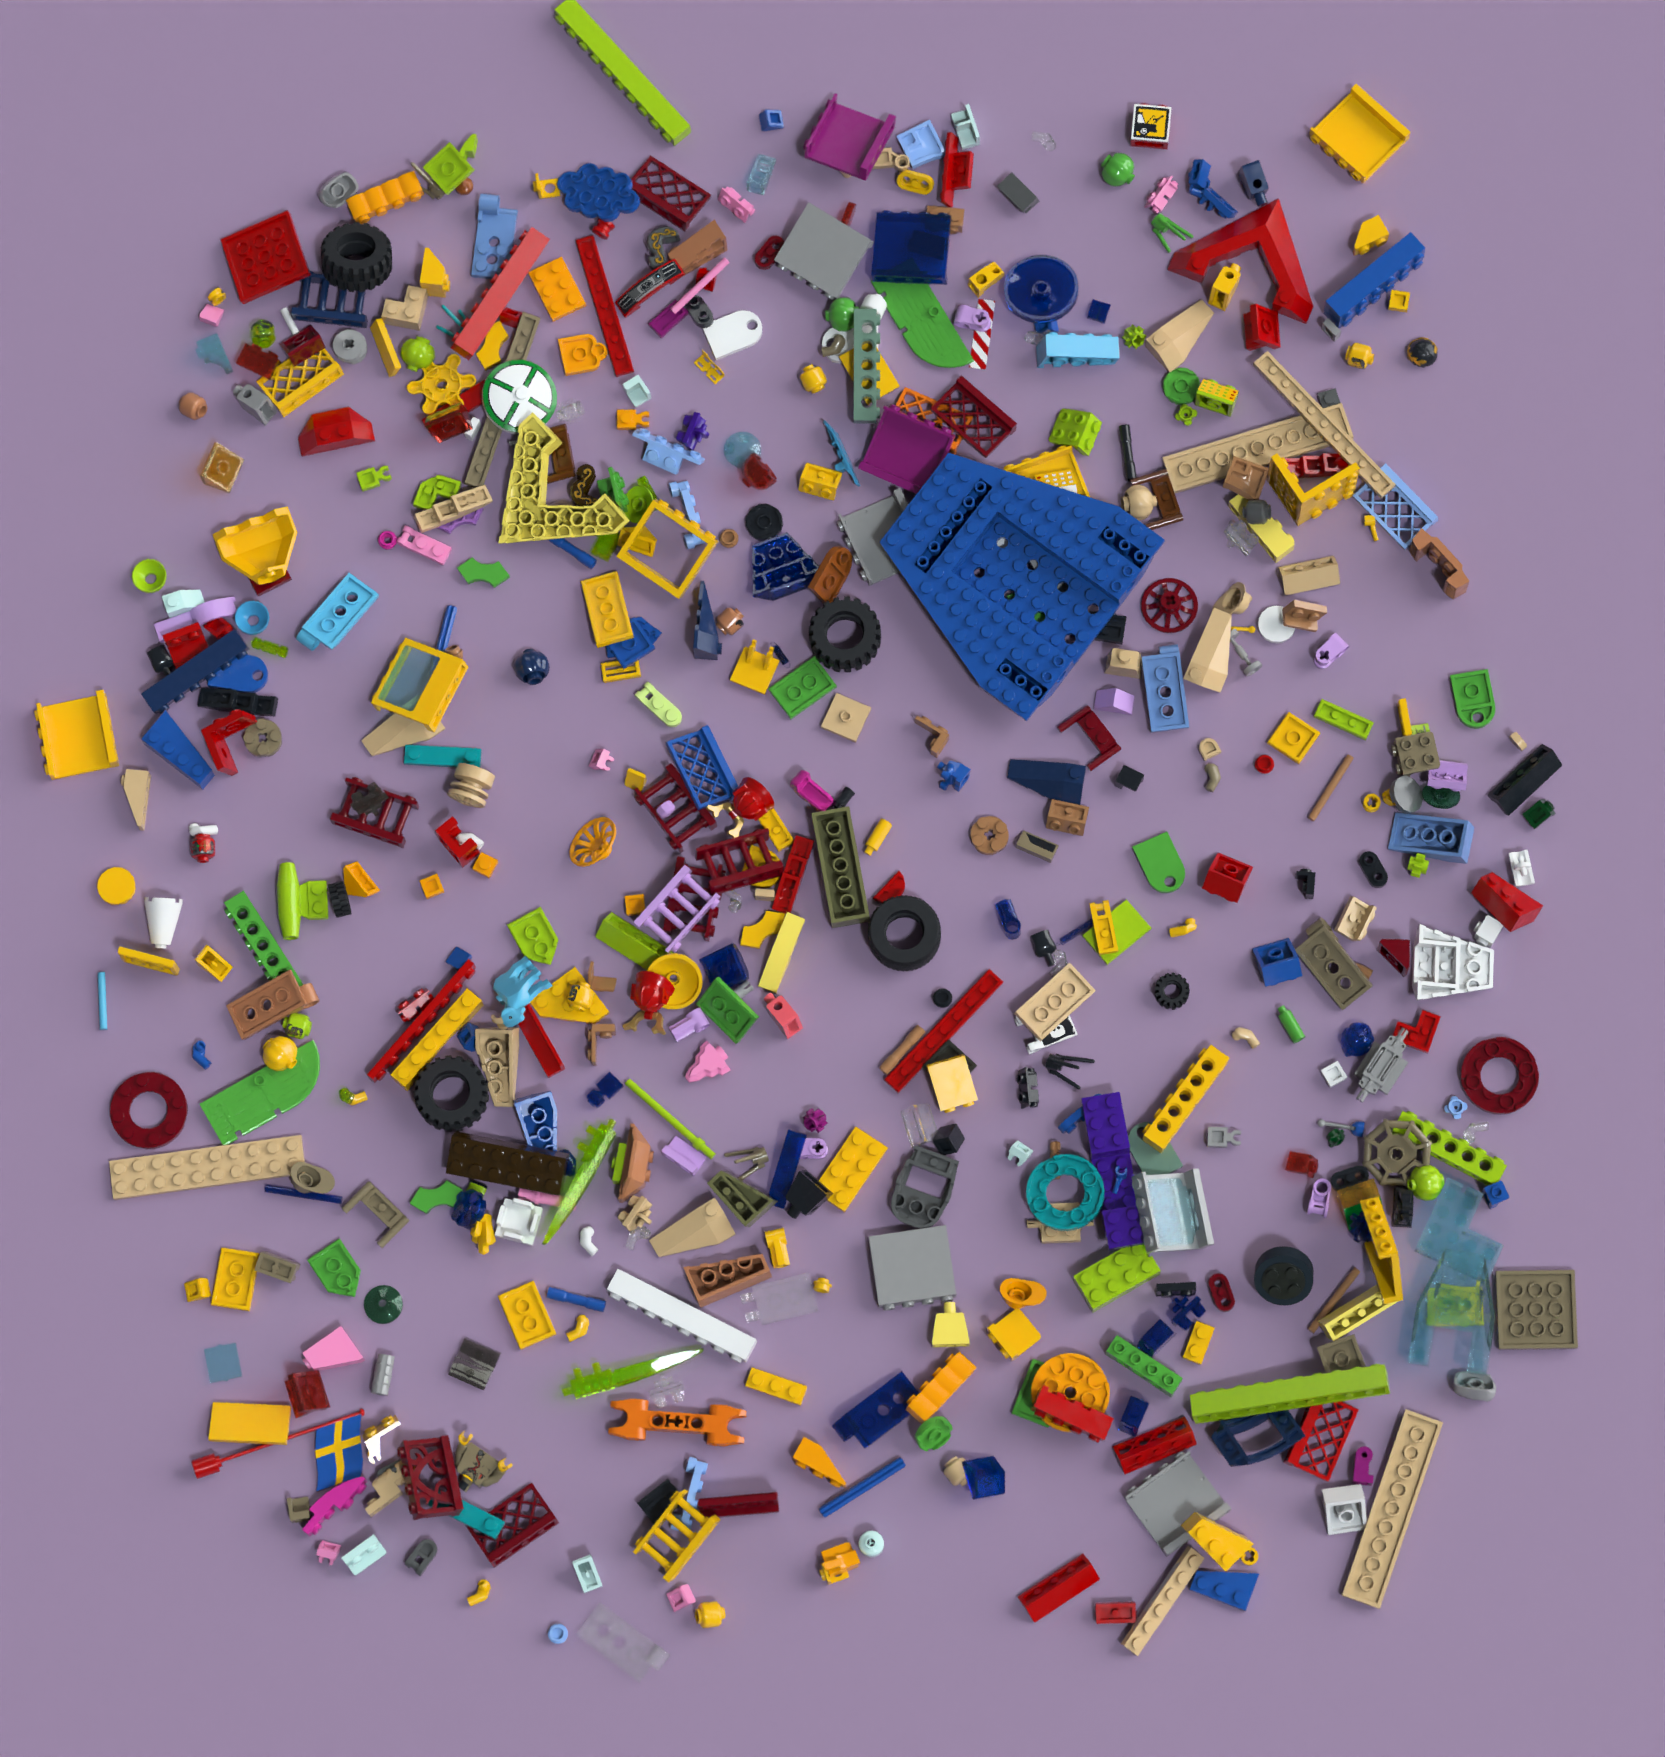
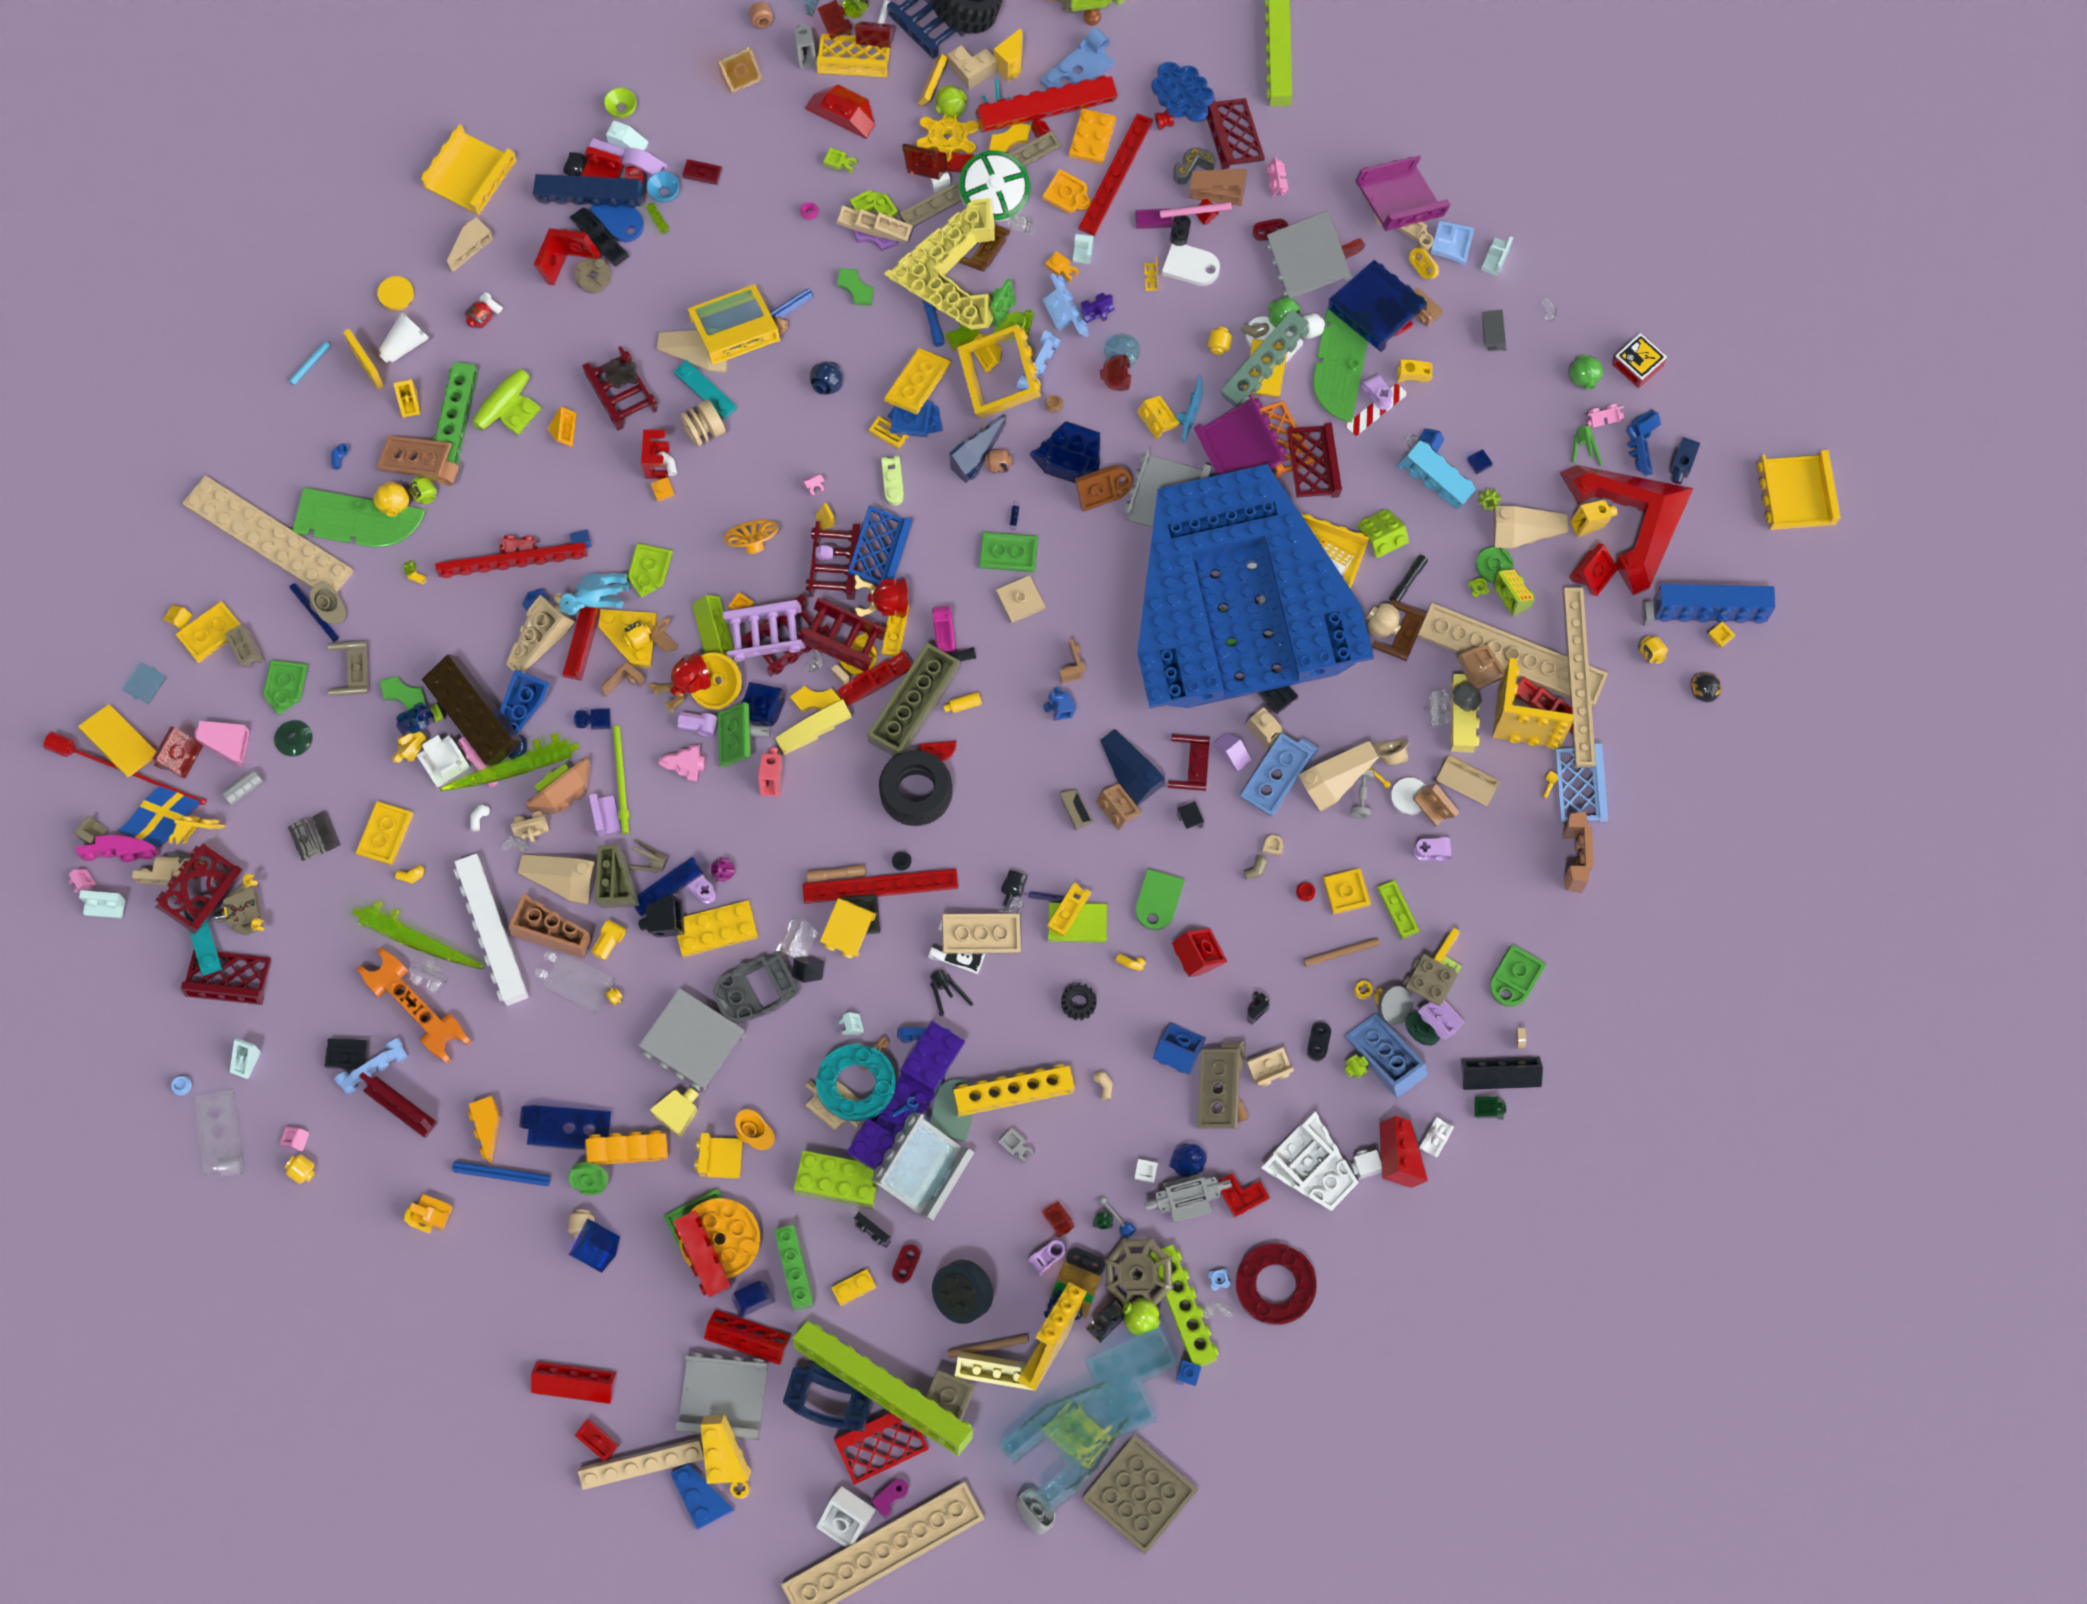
camera: 35 degrees right, 5 degrees down
(156, 1136) = (266, 488): dark red plate -> none
(174, 747) = (525, 228): blue wedge -> none
(259, 545) = (714, 140): yellow panel -> none
(331, 628) = (708, 235): medium azure hinge -> none
(339, 899) = (535, 426): black tyre -> none
(352, 338) = (908, 60): light grey piece -> none
(424, 545) = (831, 235): bright pink plate -> none
(427, 1550) = (148, 940): dark grey plate -> none
(432, 886) = (610, 472): light orange plate -> none
(443, 1069) = (470, 607): black tyre -> none
(455, 1018) = (475, 585): yellow arch -> none
(482, 1593) = (160, 1006): yellow arm -> none
(539, 186) = (1145, 58): yellow bracket -> none
(564, 1296) = (422, 841): blue piece -> none
(581, 488) = (980, 283): dark brown animal -> none
(648, 286) = (1159, 181): slope -> none
(695, 1539) = (339, 1102): yellow fence -> none
(755, 669) = (986, 509): yellow plate -> none
(760, 185) = (1306, 179): clear light blue slope -> none
(764, 522) = (1090, 413): black tile -> none
(771, 120) = (1357, 141): blue slope -> none
(776, 1386) = (510, 1042): yellow plate -> none
(838, 611) = (1073, 515): black tyre -> none
(868, 1550) = (469, 1225): light aqua head -> none
(957, 170) = (1461, 278): red bracket -> none
(983, 826) = (1058, 772): medium nougat plate -> none
(1008, 918) = (1004, 843): clear blue piece -> none
(1027, 1096) = (897, 986): black hinge -> none
(1041, 289) = (1449, 409): clear blue dish -> none
(1156, 1338) = (824, 1254): clear blue torso -> none
(1169, 604) = (1340, 714): dark red wheel -> none
(1181, 1318) = (856, 1256): clear blue hips -> none
(1290, 1025) = (1147, 1105): bright green cylinder -> none
(1328, 398) = (1601, 662): dark grey plate -> none
(1371, 234) = (1741, 569): yellow slope -> none
(1396, 953) = (1278, 1119): dark red slope -> none

